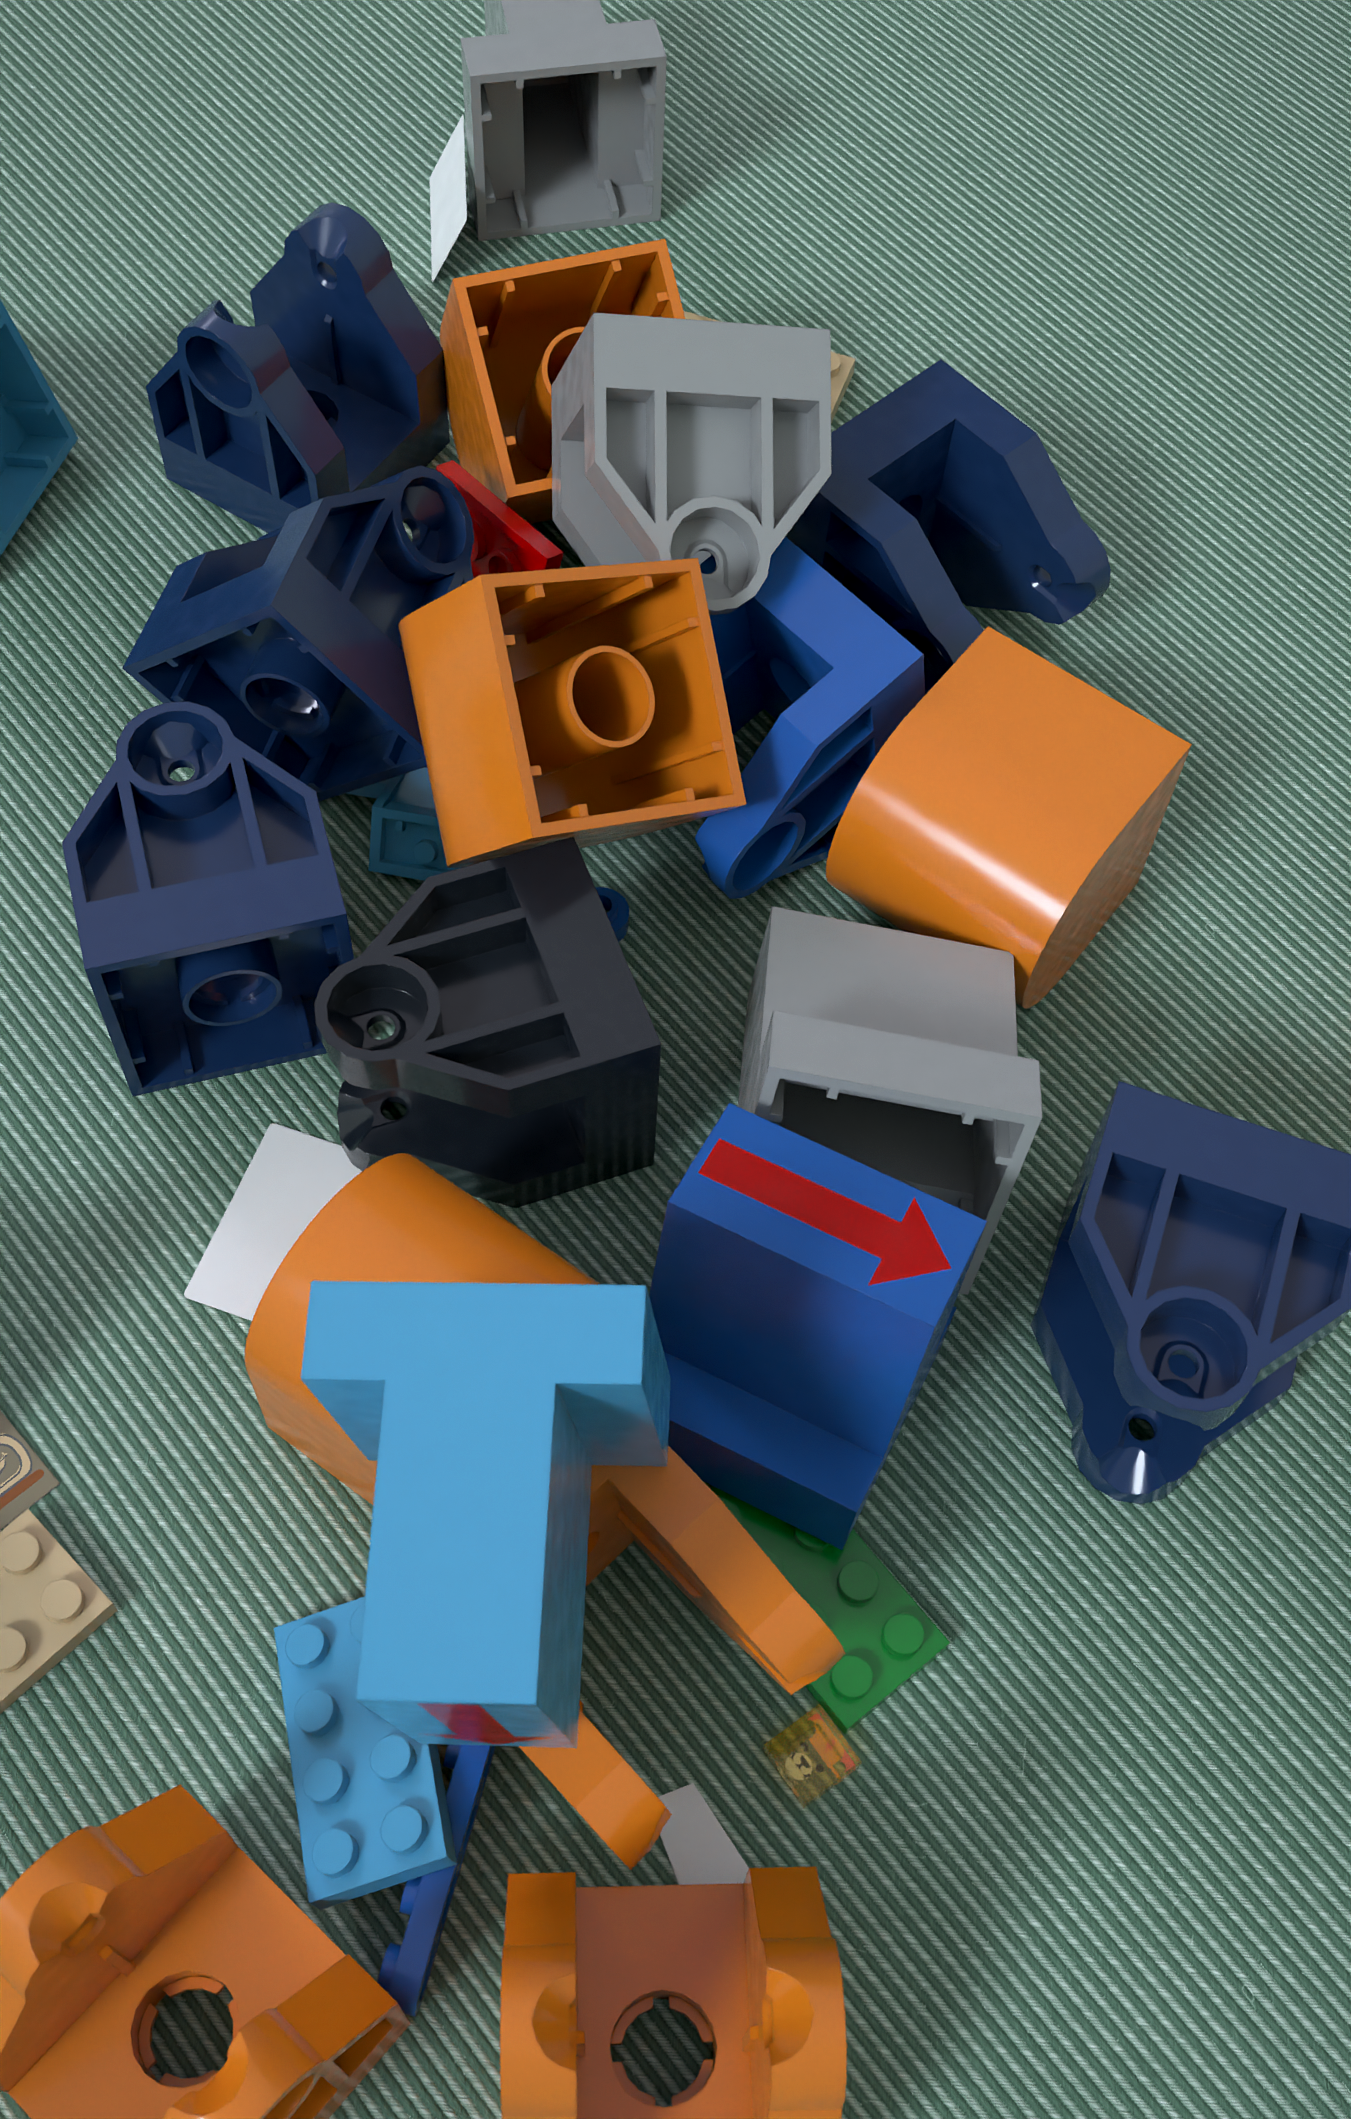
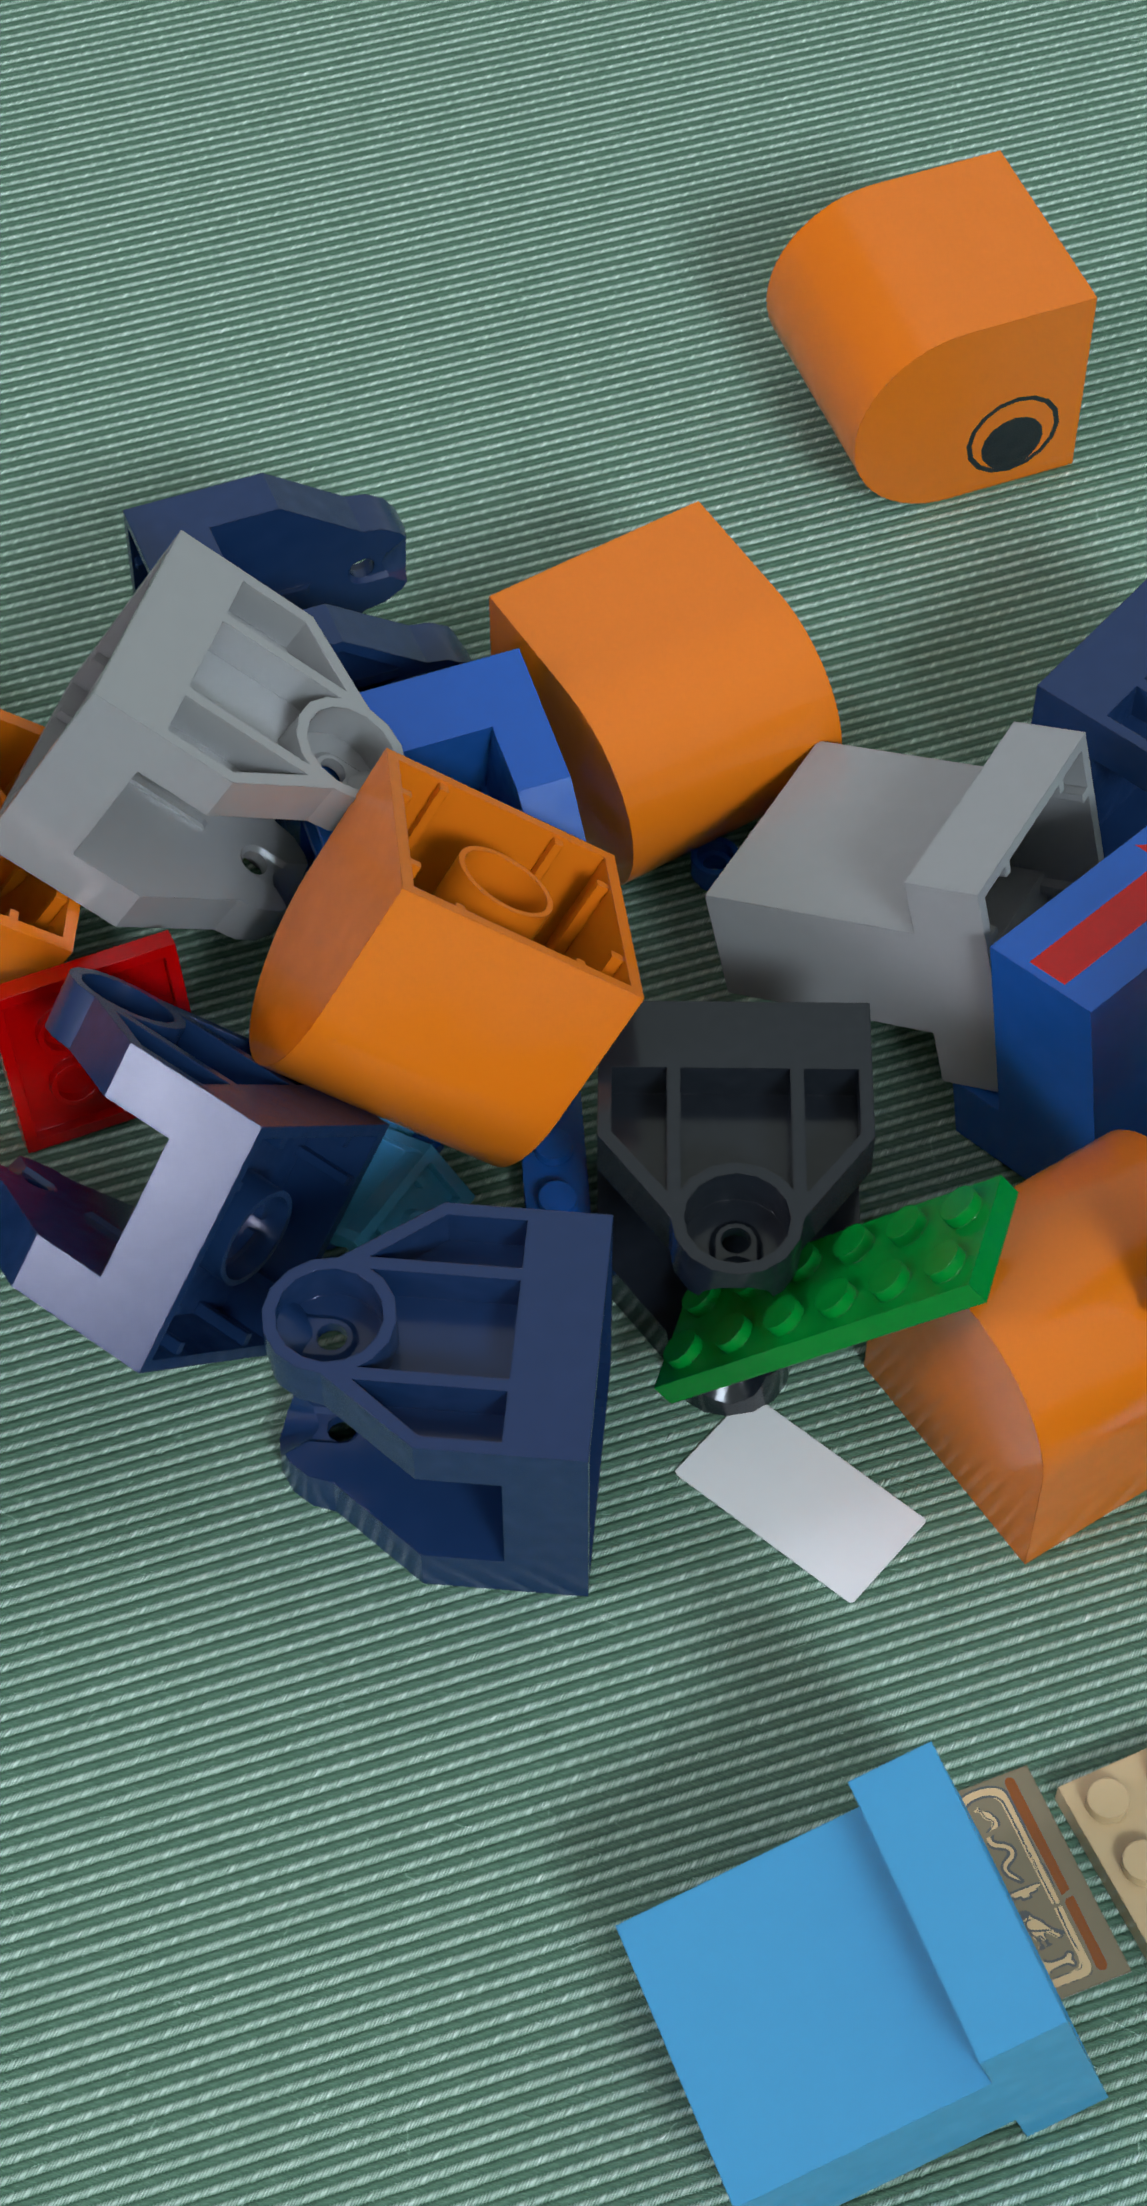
camera: 65 degrees left, 5 degrees down
(355, 1137) = (845, 1291): none -> green plate

